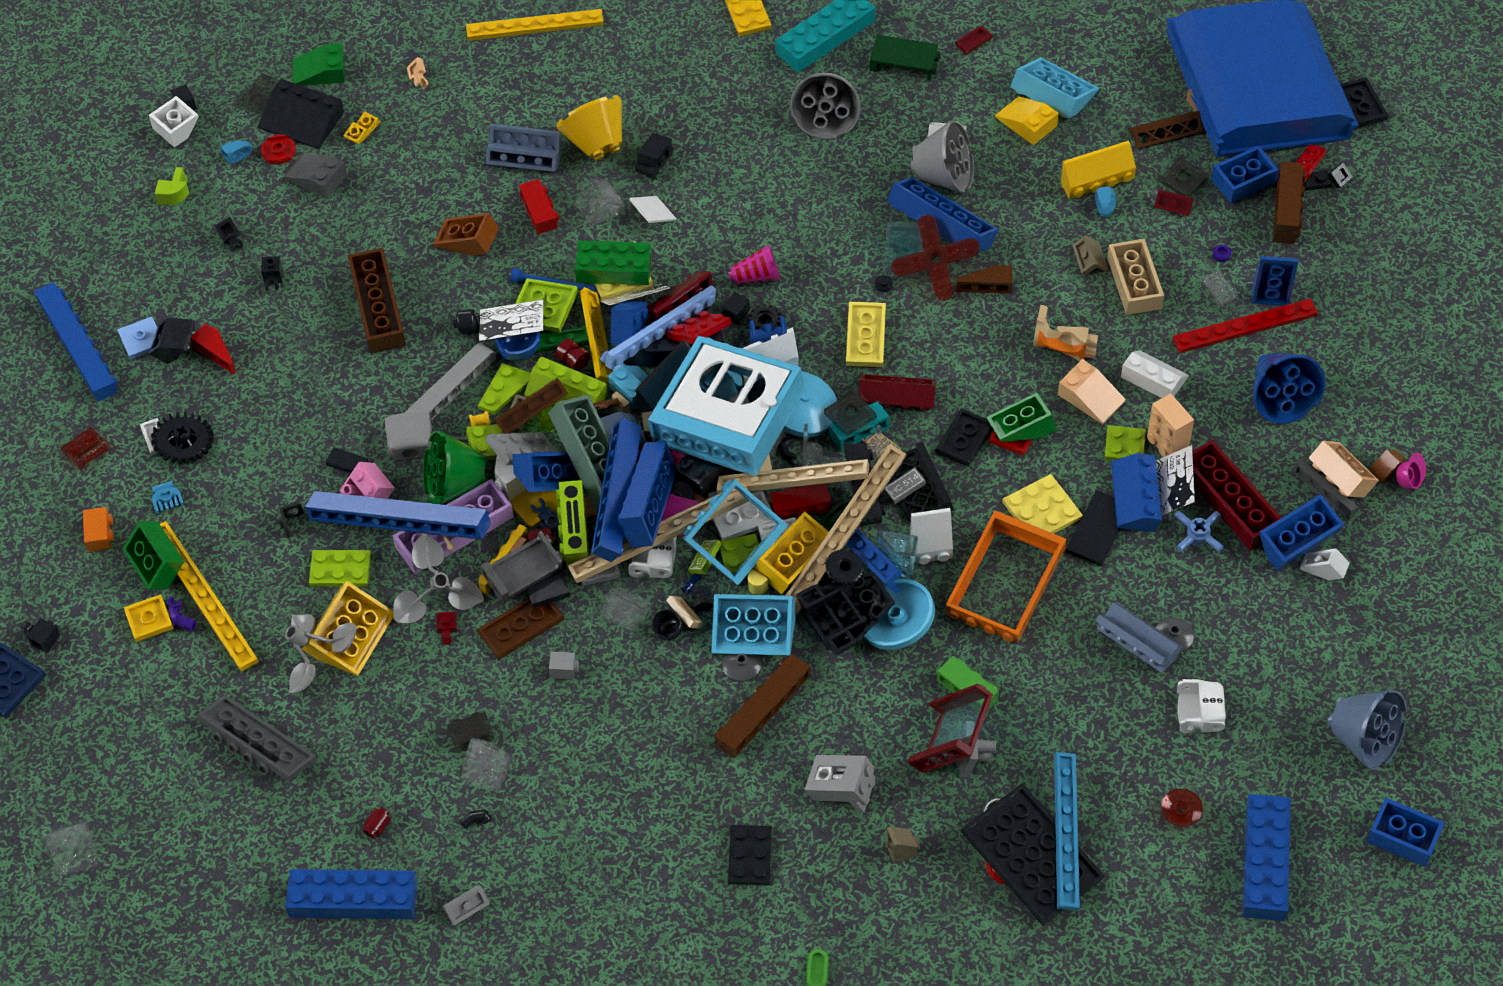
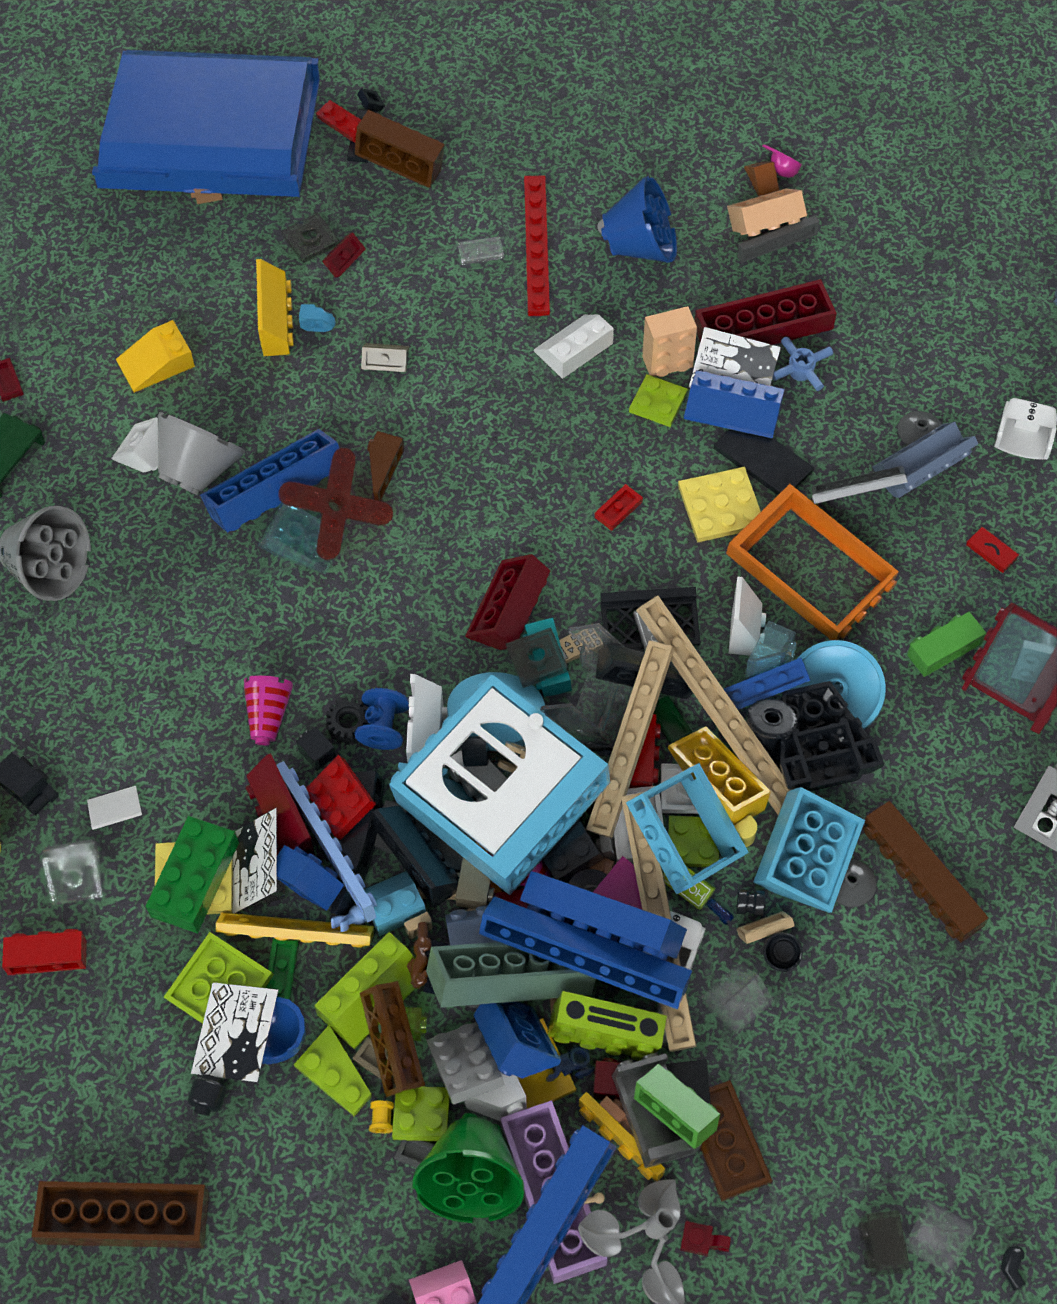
camera: 75 degrees left, 5 degrees up
(408, 435) = (377, 1220): light grey piece -> none
(454, 381) = (314, 1153): light grey beam -> none
(467, 234) = (51, 1062): dark orange slope -> none
(519, 276) = (152, 1009): blue piece -> none
(524, 573) = (677, 1106): none -> bright green brick
(563, 665) = (809, 1097): light grey brick -> none
(572, 355) = (318, 966): dark red wheel -> none
(865, 334) = (410, 614): light yellow plate -> none
(883, 283) = (339, 575): black plate -> none
(964, 437) = (596, 553): black tile -> none
(1023, 420) = (603, 483): green slope -> none
(1054, 86) = (122, 318): medium azure slope -> none
(1068, 340) = (508, 409): tan hips -> none
(1073, 706) = (992, 549): none -> red tile
(1085, 587) = (859, 484): none -> tile
(1090, 392) = (578, 411): light nougat slope -> none
(1135, 276) = (437, 318): tan brick -> none
(1162, 123) = (227, 229): reddish brown fence -> none
(1221, 253) = (429, 235): dark purple tile -> none
(1244, 174) = (337, 178): blue brick -> none
(1274, 280) = (506, 194): blue slope -> none
(1300, 532) = (838, 272): blue slope -> none
(1326, 564) = (873, 268): white slope -> none
(1364, 102) = (280, 45): black plate -> none

